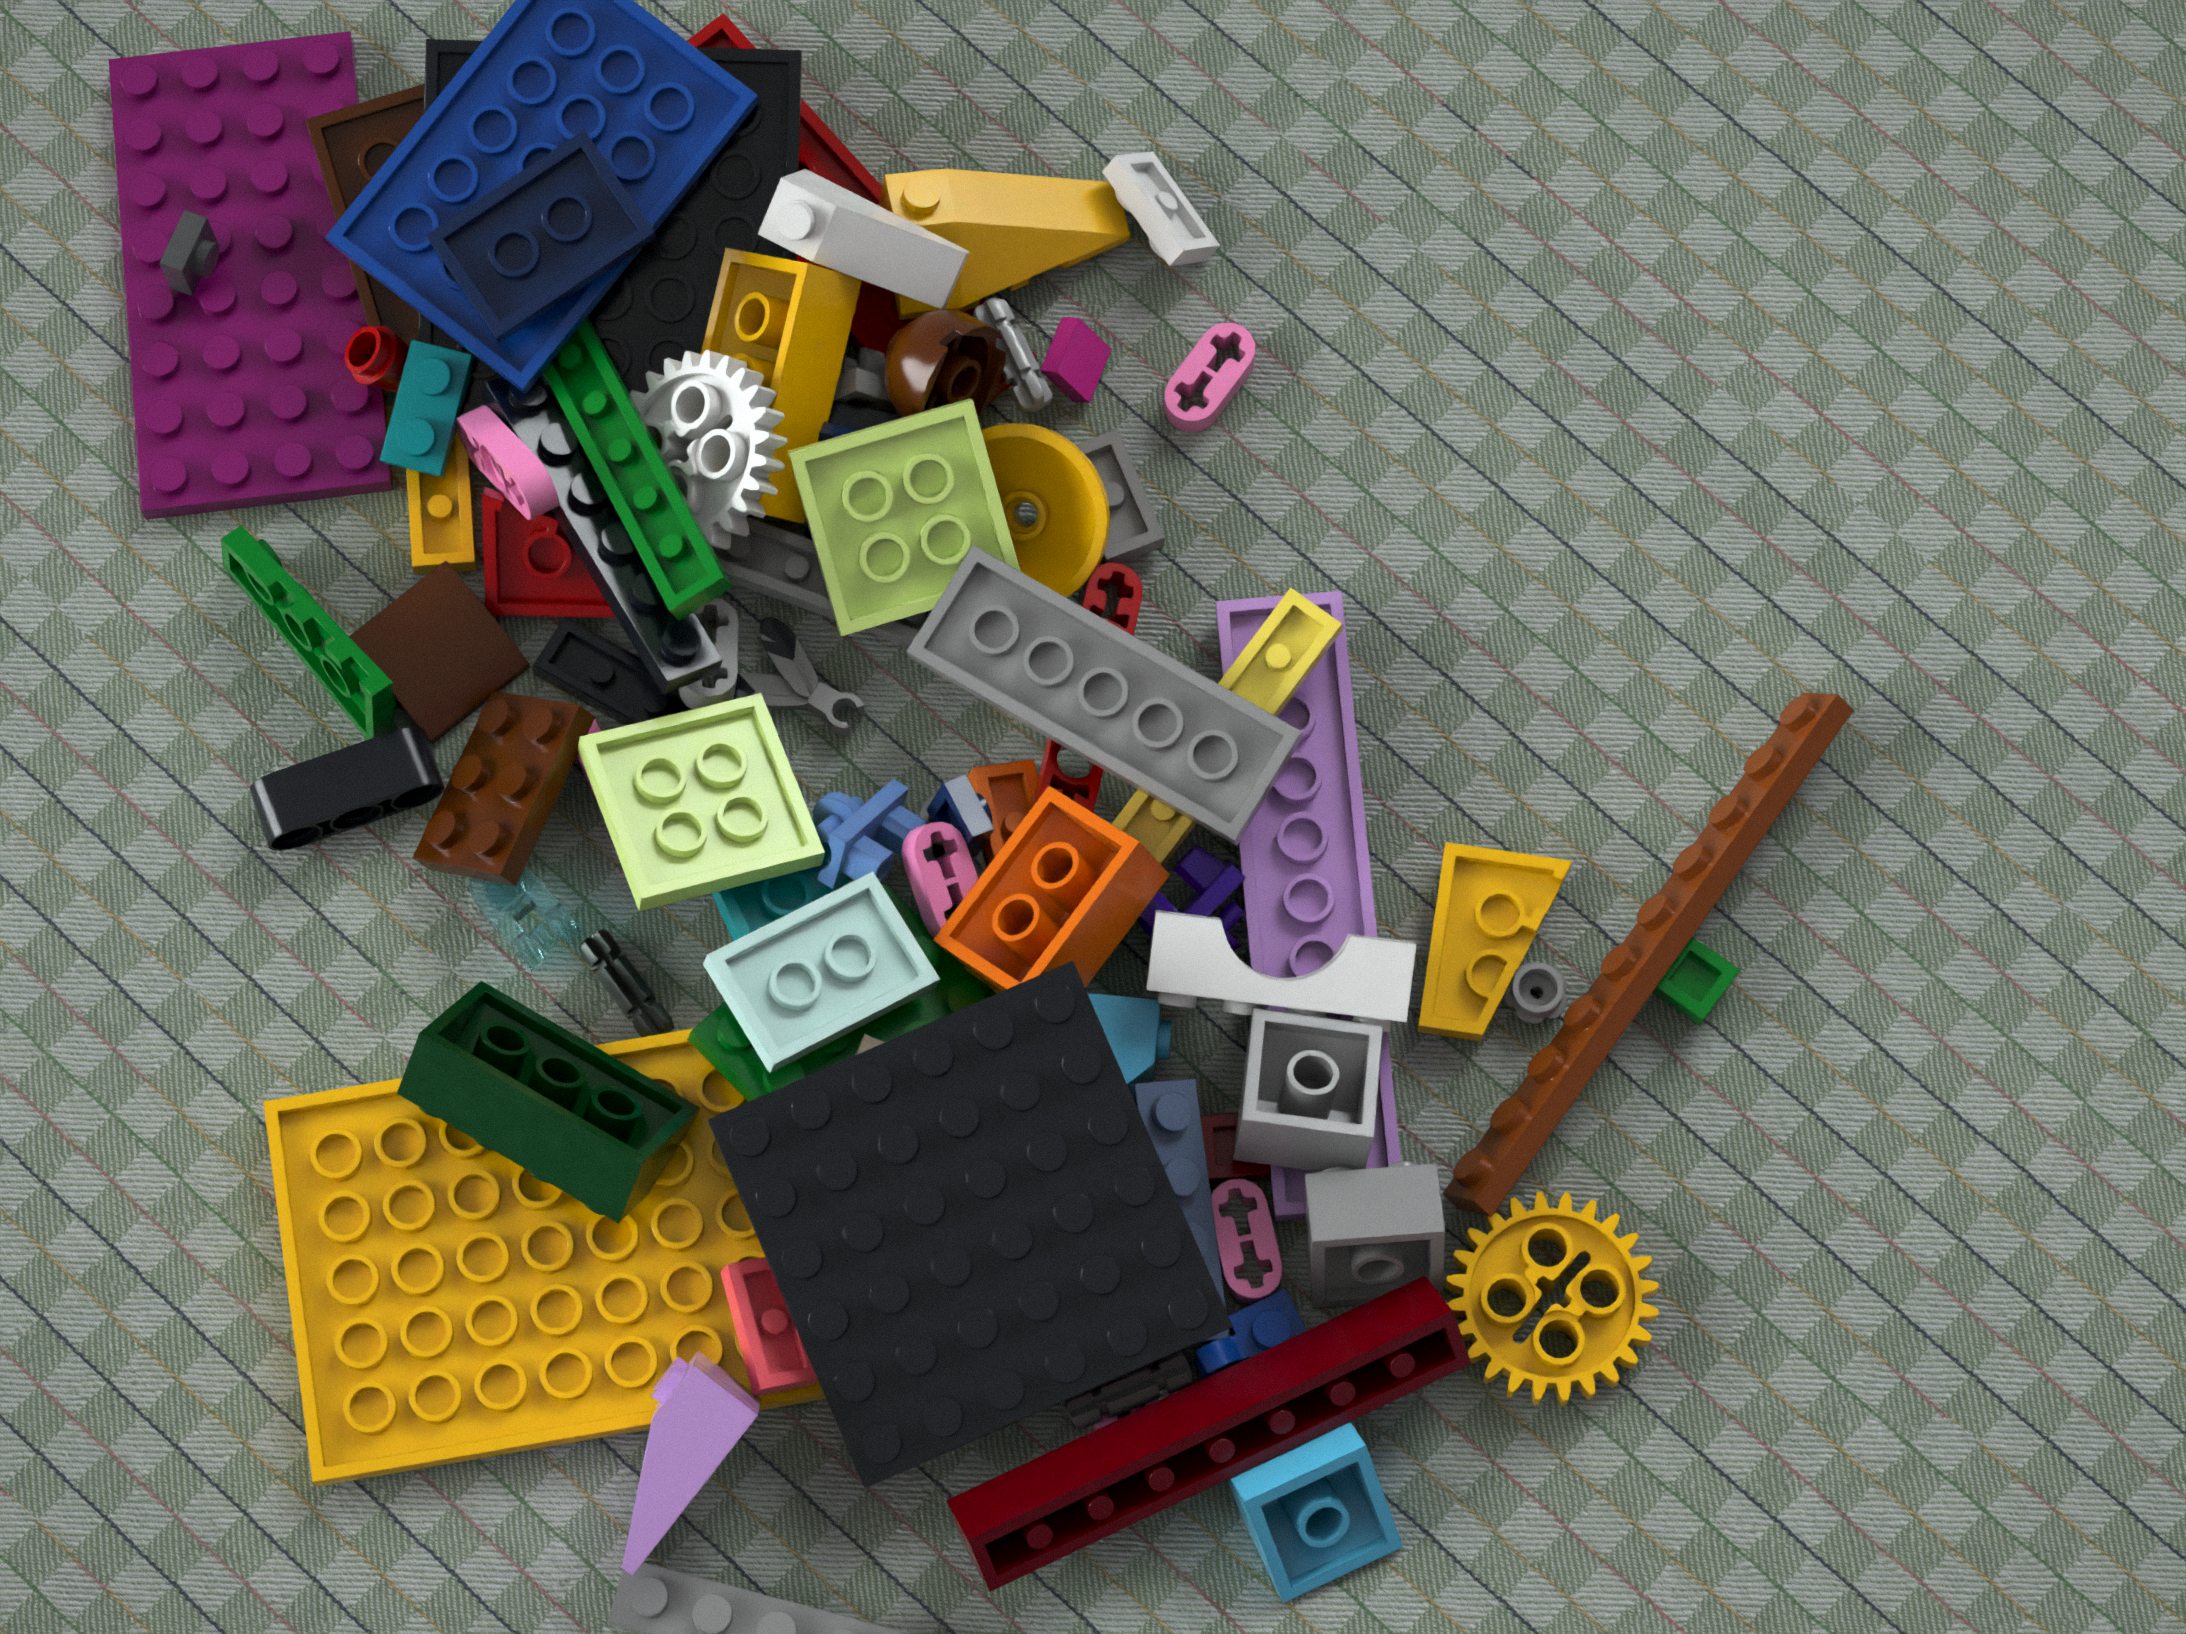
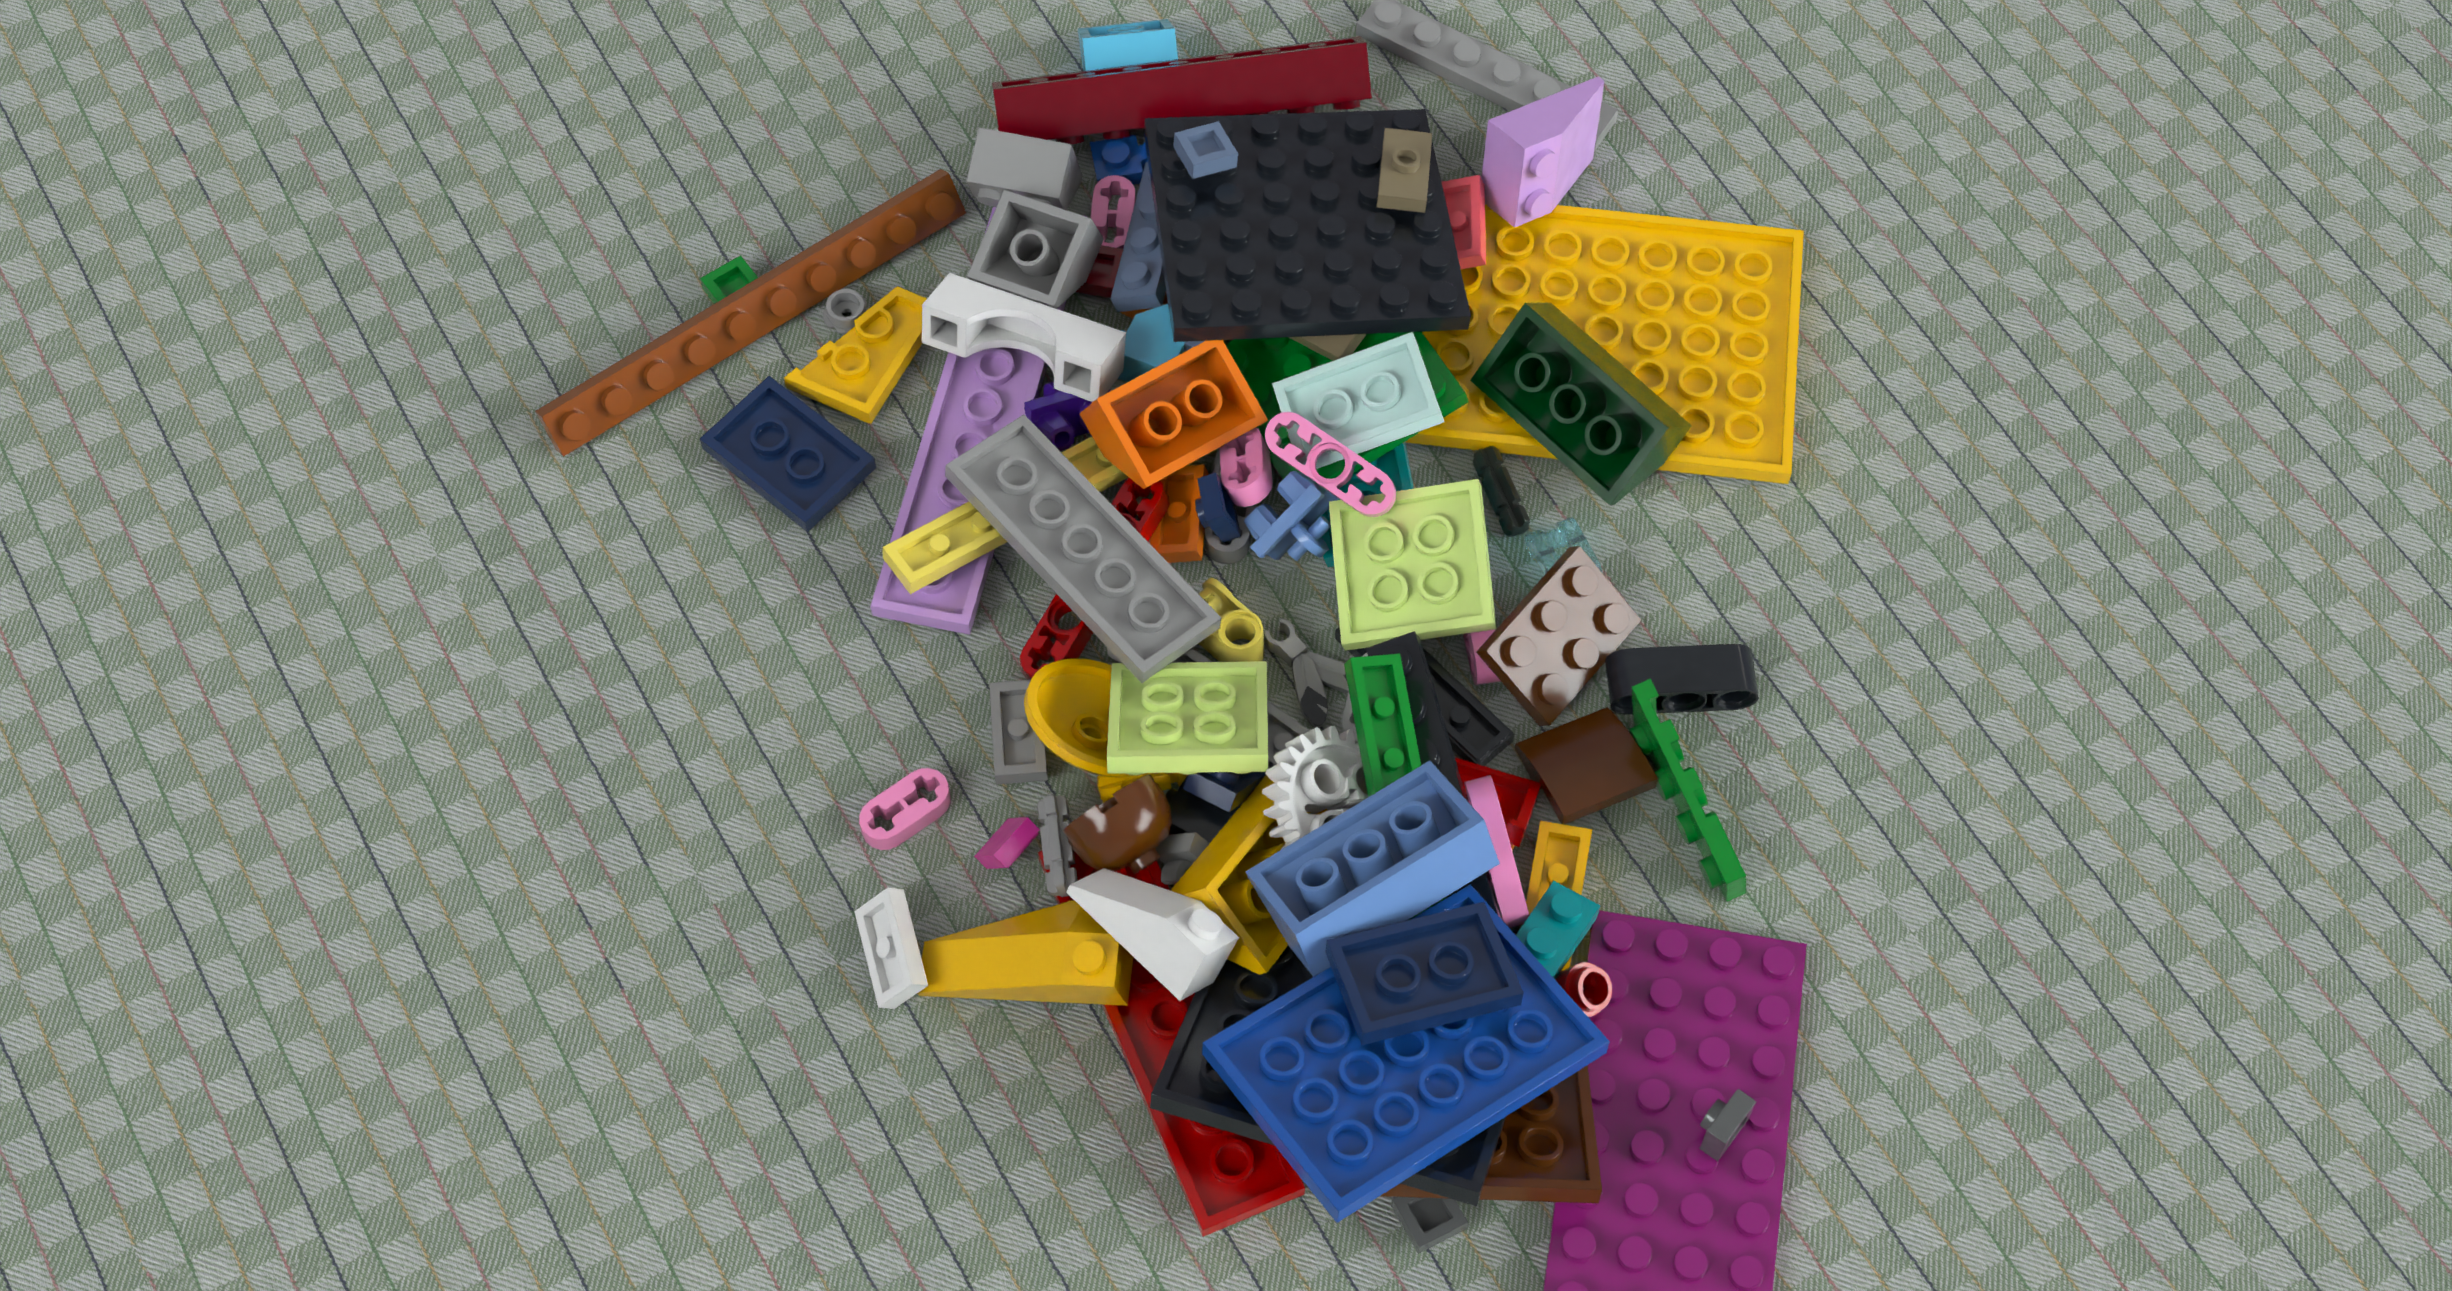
camera: 165 degrees left, 10 degrees down
(633, 350) = (1374, 864): none -> medium blue slope
(845, 888) = (1292, 454): none -> bright pink beam
(854, 1326) = (1404, 170): none -> dark tan plate
(916, 700) = (1235, 624): none -> light yellow piece
(1122, 1253) = (1205, 150): none -> sand blue plate
(1526, 769) = (788, 453): none -> dark blue plate
(1597, 1333) = (917, 123): yellow gear -> none

